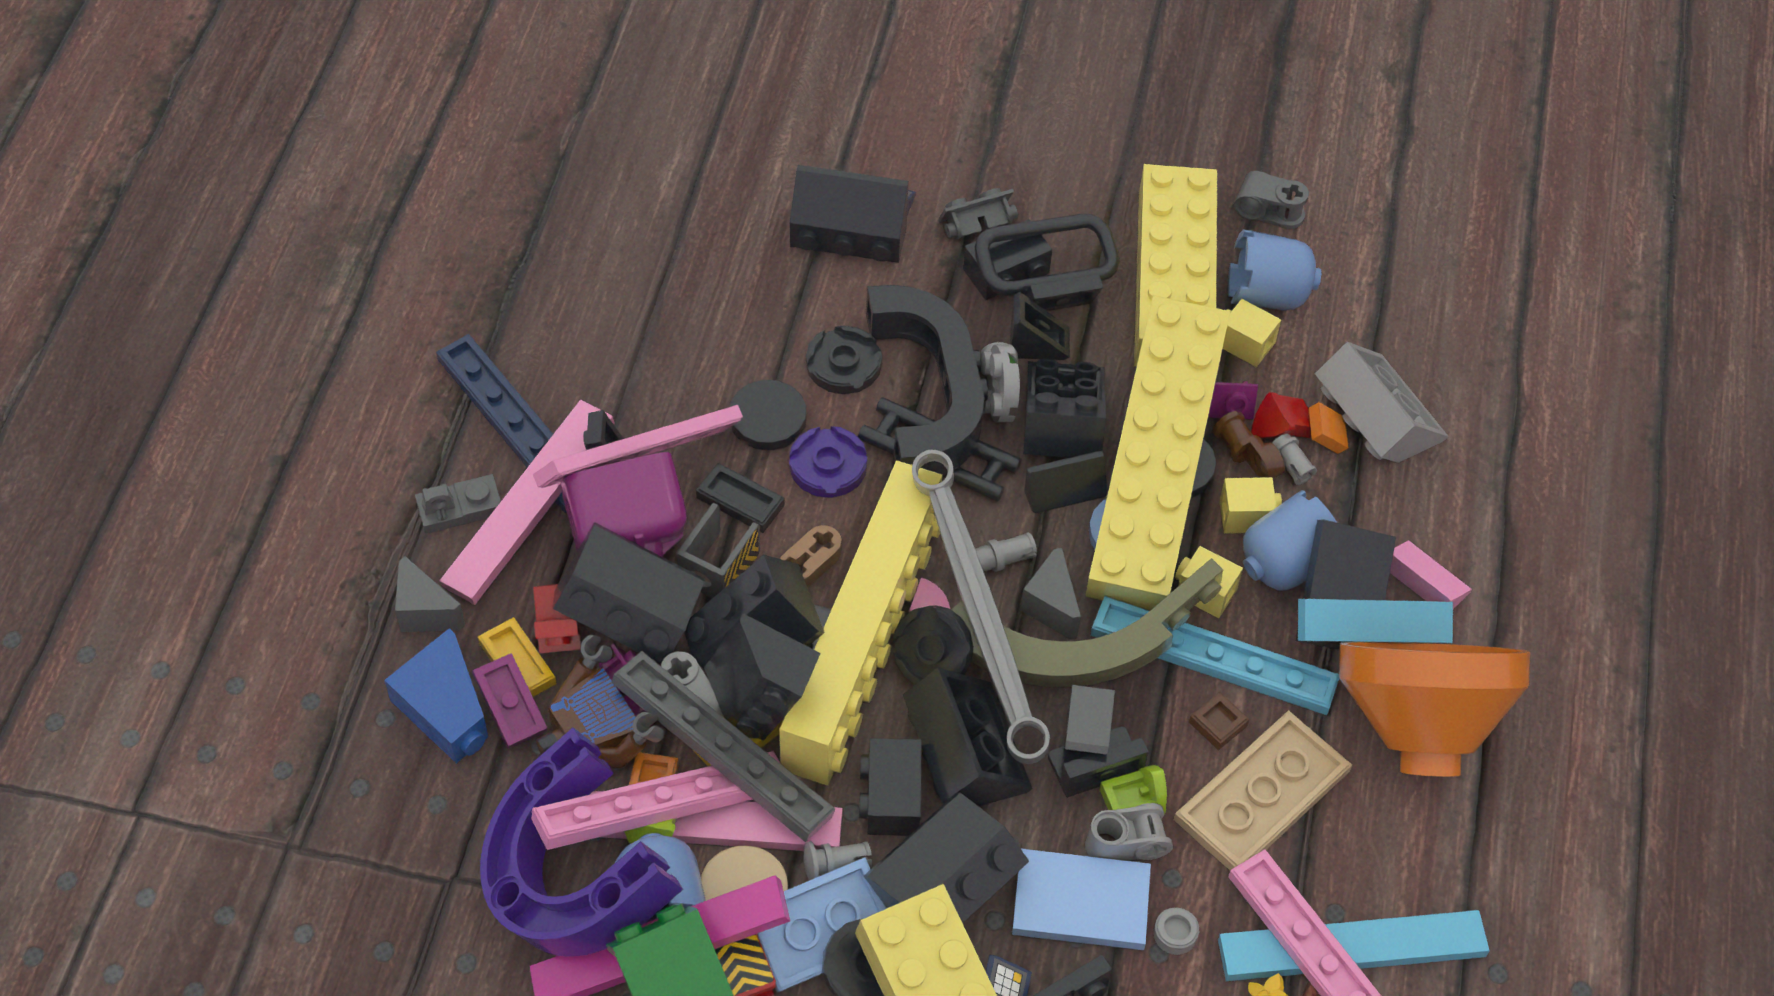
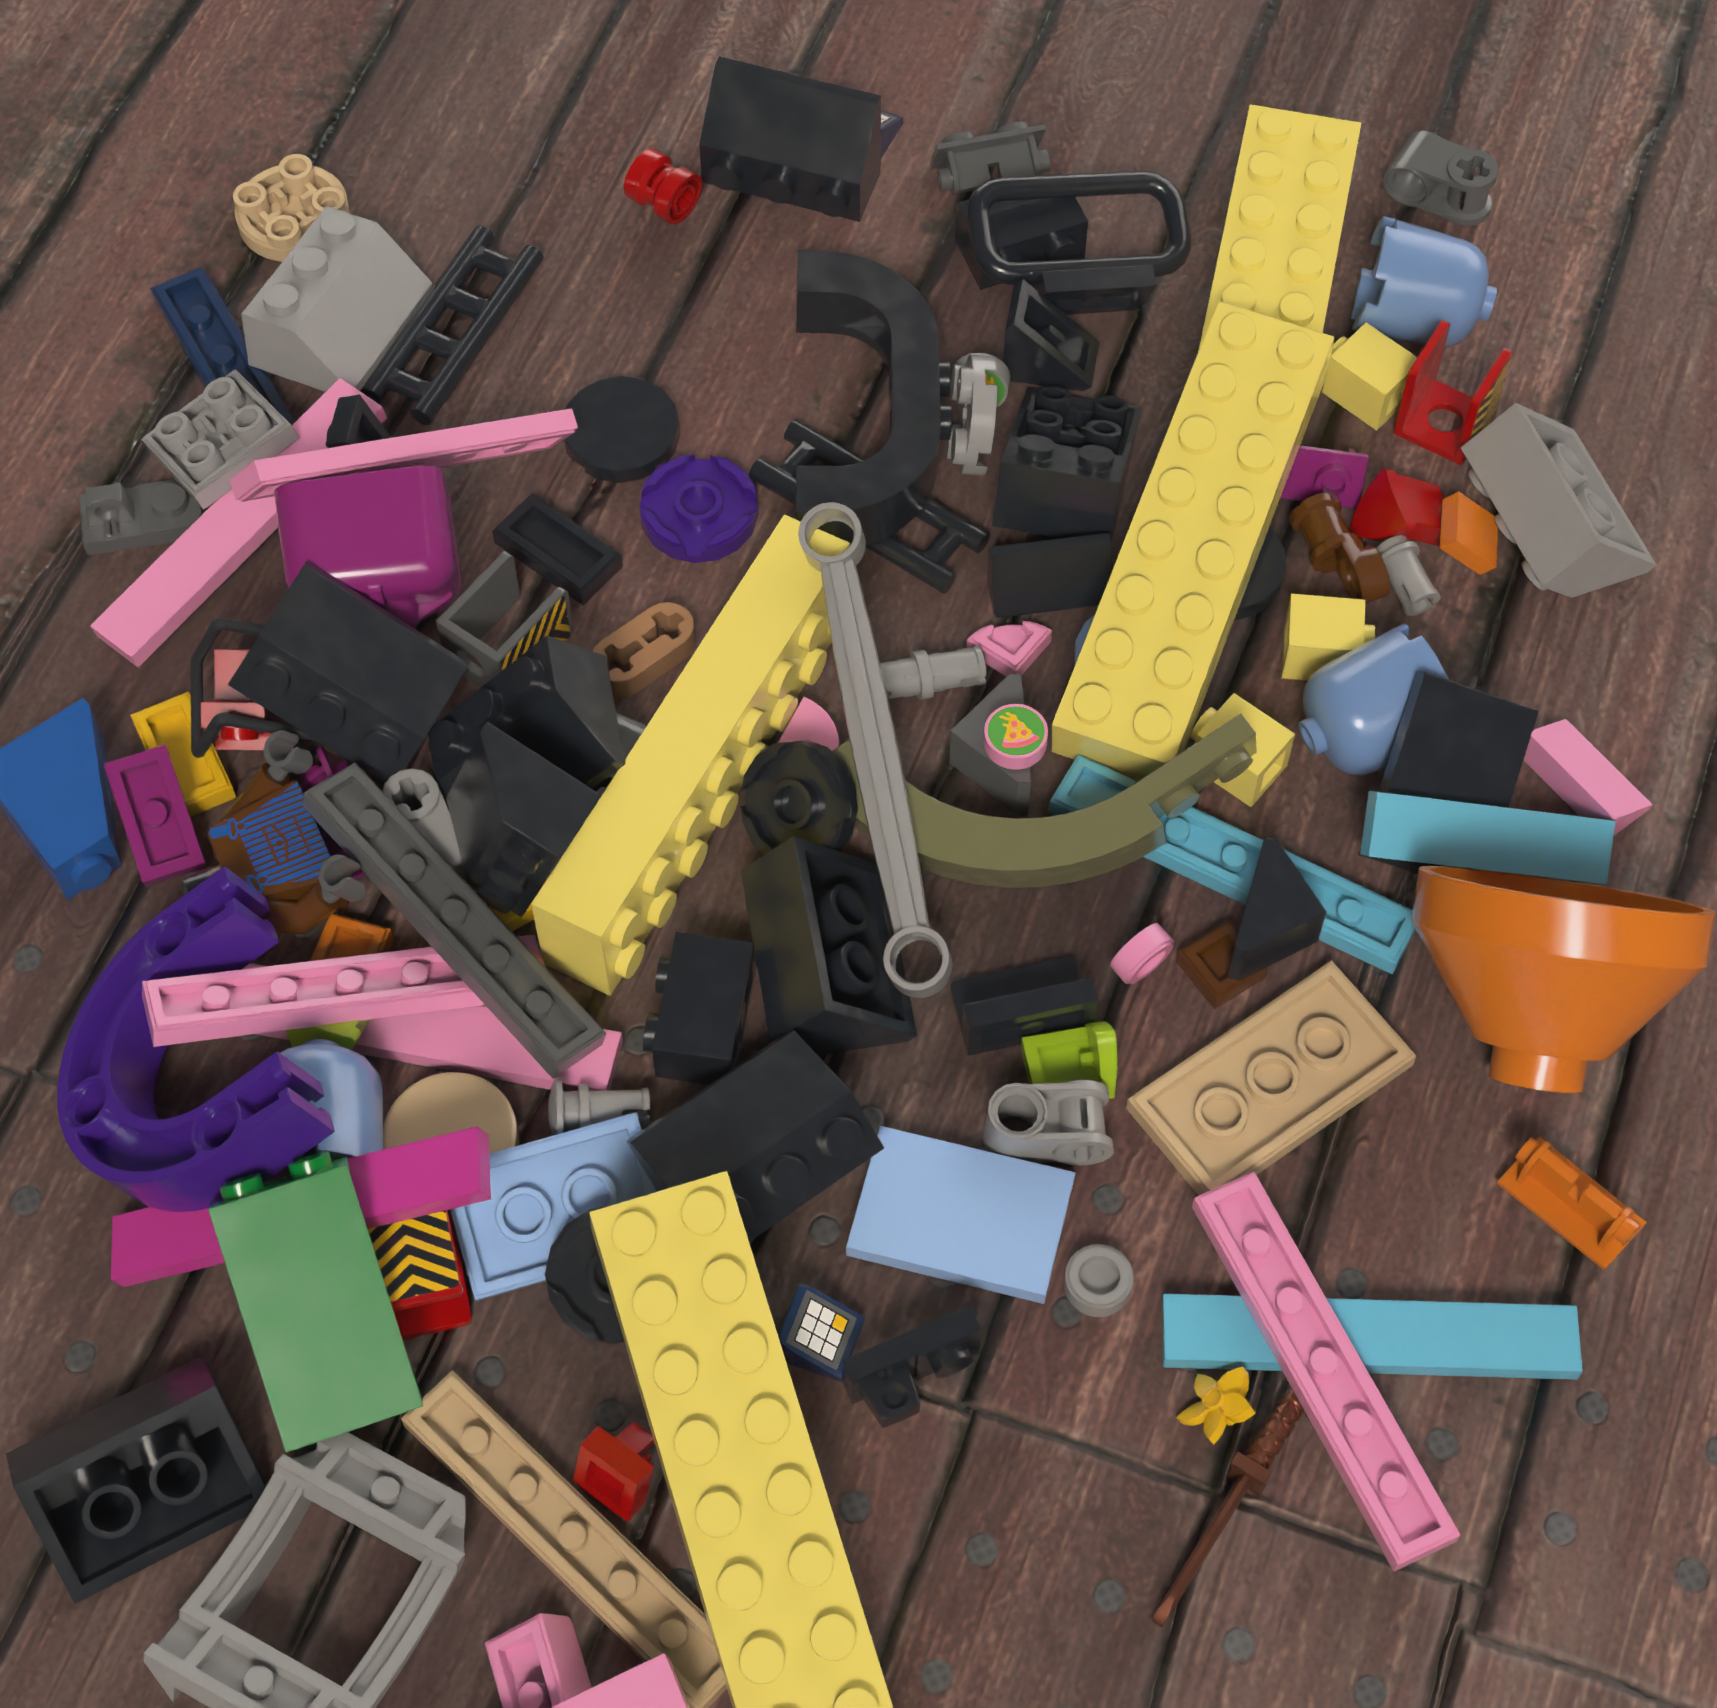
camera: 10 degrees right, 5 degrees up
(423, 603) = (55, 657): dark grey slope -> none
(505, 447) = (218, 437): none -> light grey tile
(521, 291) = (283, 203): none -> tan tile
(534, 651) = (201, 739): none -> black piece
(565, 351) = (333, 303): none -> light grey slope
(651, 374) = (458, 353): none -> black bar
(767, 252) = (659, 184): none -> red wheel
(844, 360) = (750, 358): black tile -> none
(1048, 531) = (1011, 647): none -> bright pink tile
(1066, 588) = (1015, 736): none -> tile
(1089, 719) = (1015, 941): dark grey slope -> none
(1168, 719) = (1142, 954): none -> bright pink tile
(1252, 683) = (1278, 915): none -> black slope
(1287, 341) = (1426, 394): none -> red piece
(1464, 846) = (1571, 1202): none -> orange hinge

